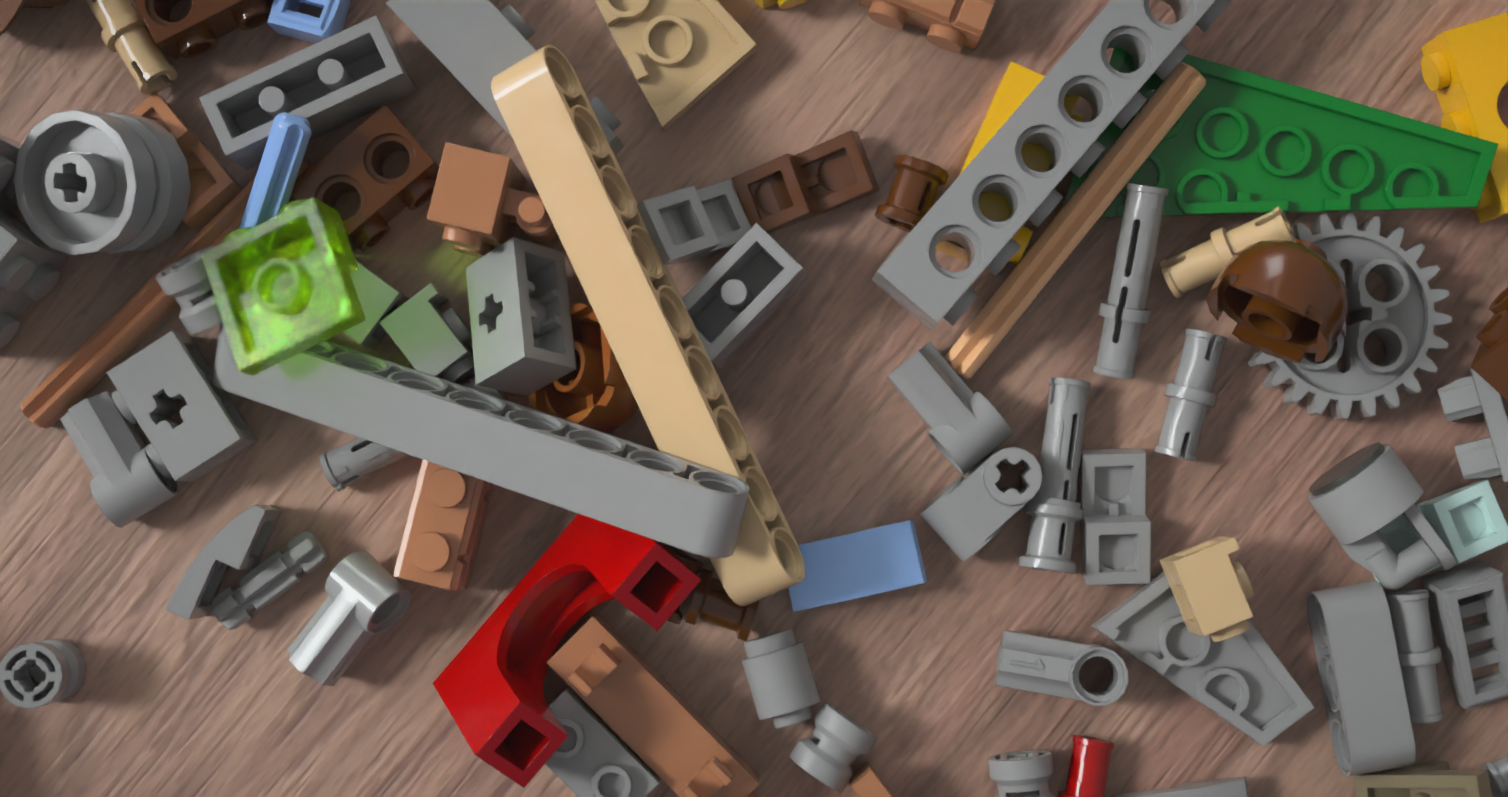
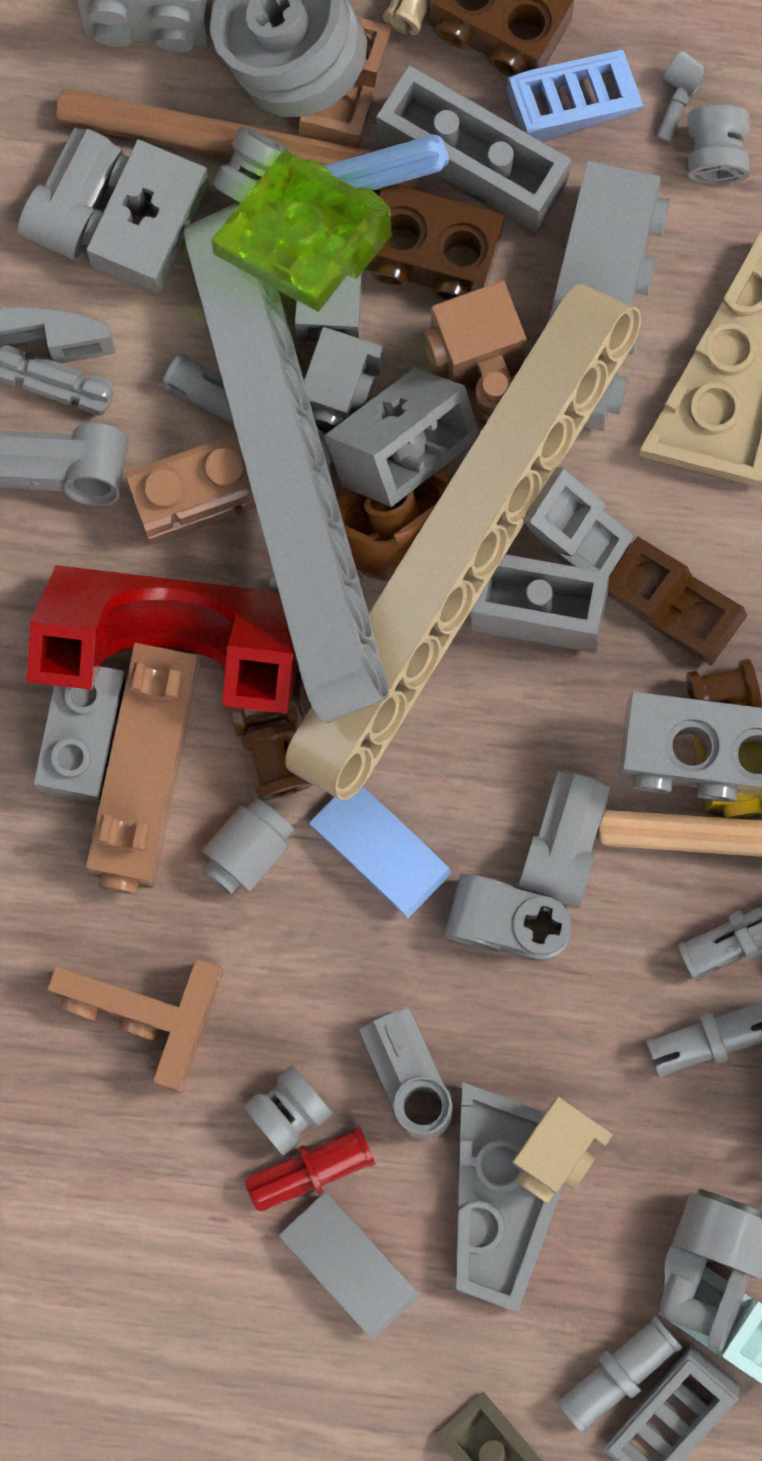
camera: 55 degrees right, 5 degrees down
(833, 747) = (218, 928): light grey wheel -> none
(1054, 507) = (541, 984): light grey pin -> none
(1114, 518) = (567, 1041): light grey slope -> none
(1361, 678) = (569, 1339): light grey beam -> none

